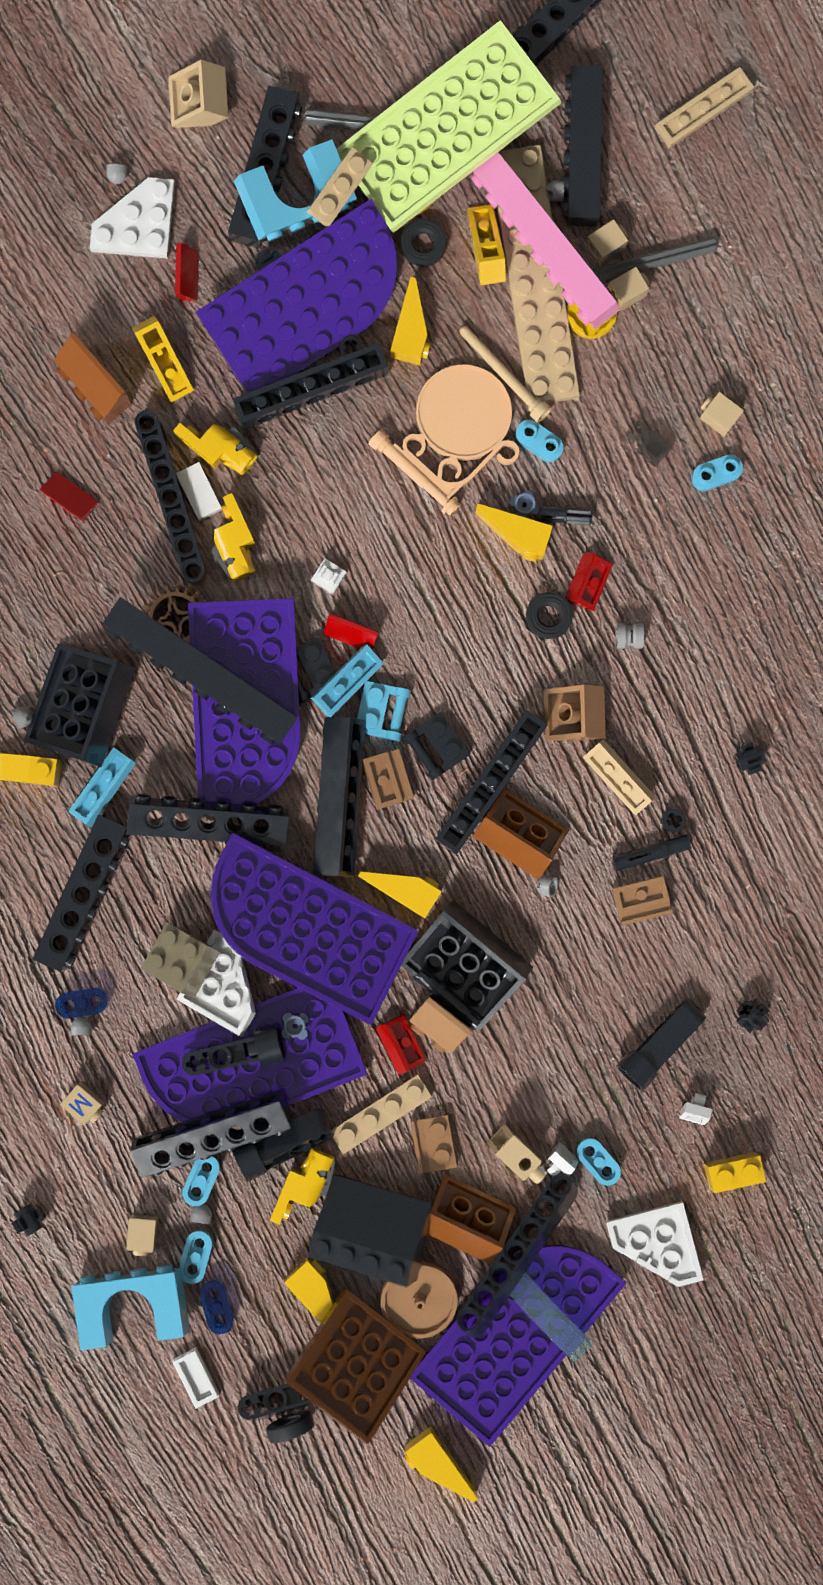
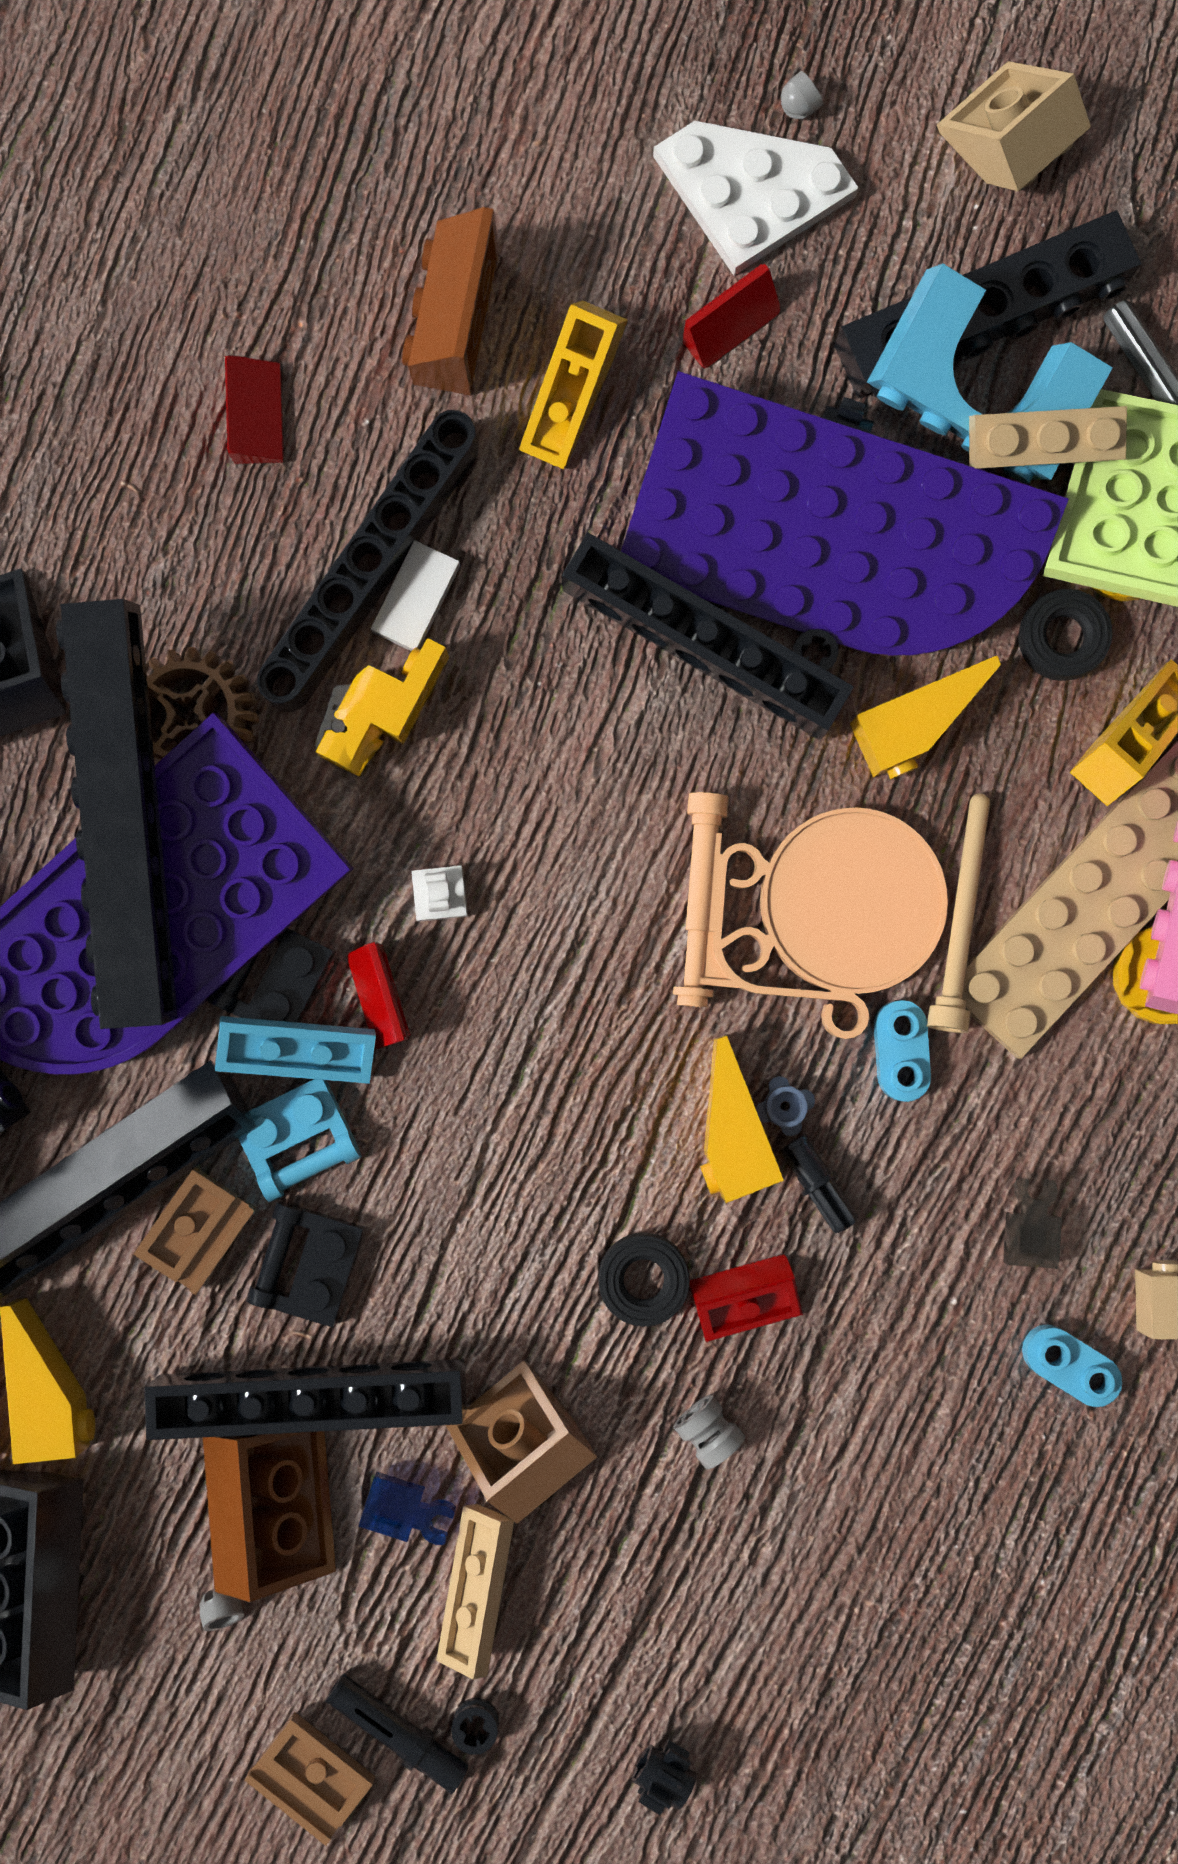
camera: 60 degrees right, 0 degrees up
(219, 446) = (507, 572): yellow plate -> none
(563, 783) = (397, 1507): none -> clear blue plate

